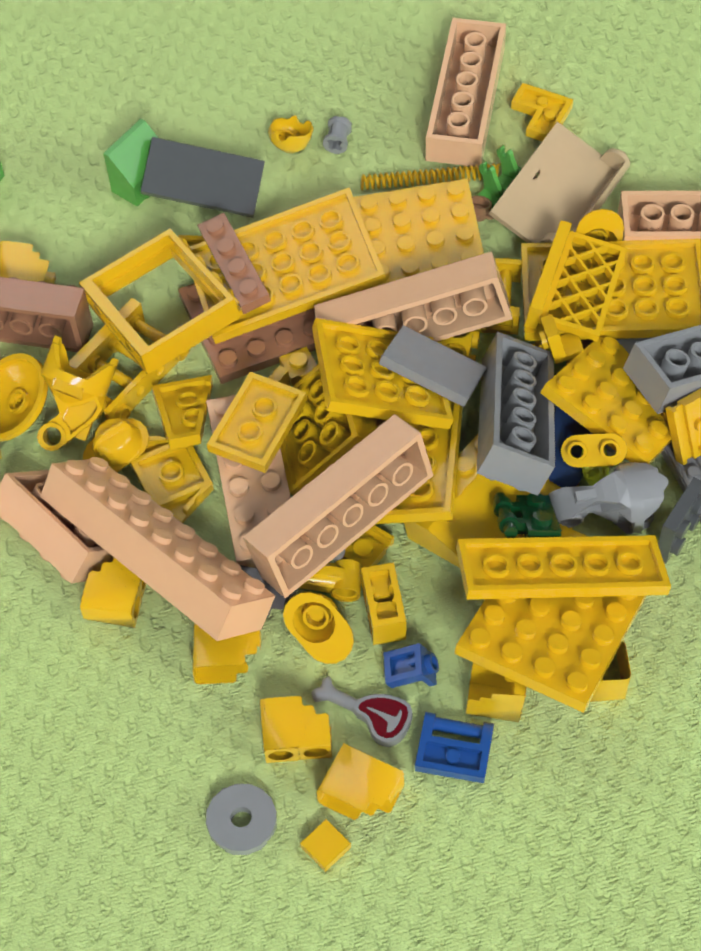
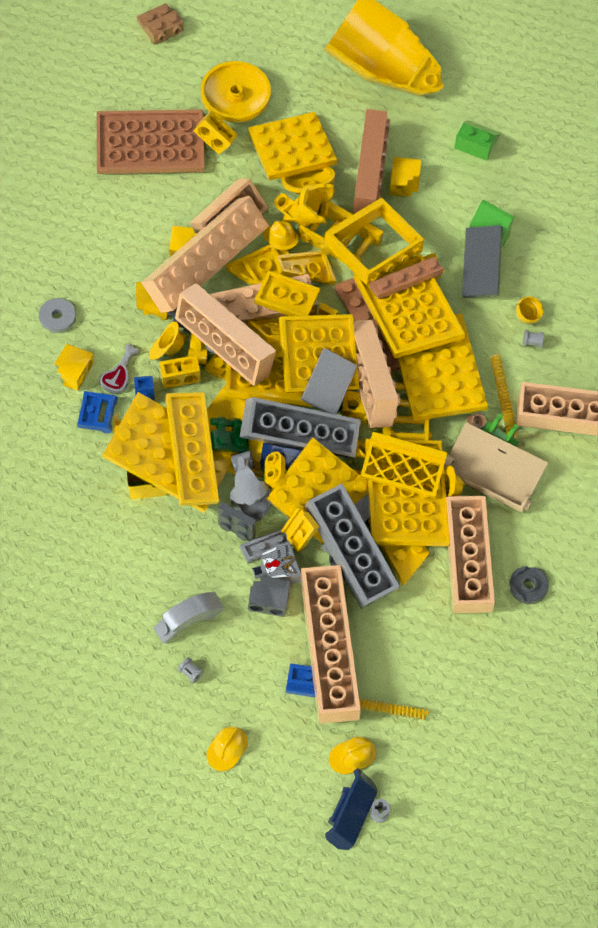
camera: 80 degrees right, 5 degrees up
(294, 730) = (105, 334): yellow piece -> none
(325, 845) = (42, 354): yellow tile -> none
(543, 106) = (569, 464): yellow plate -> none
(562, 347) = (356, 453): yellow bracket -> none

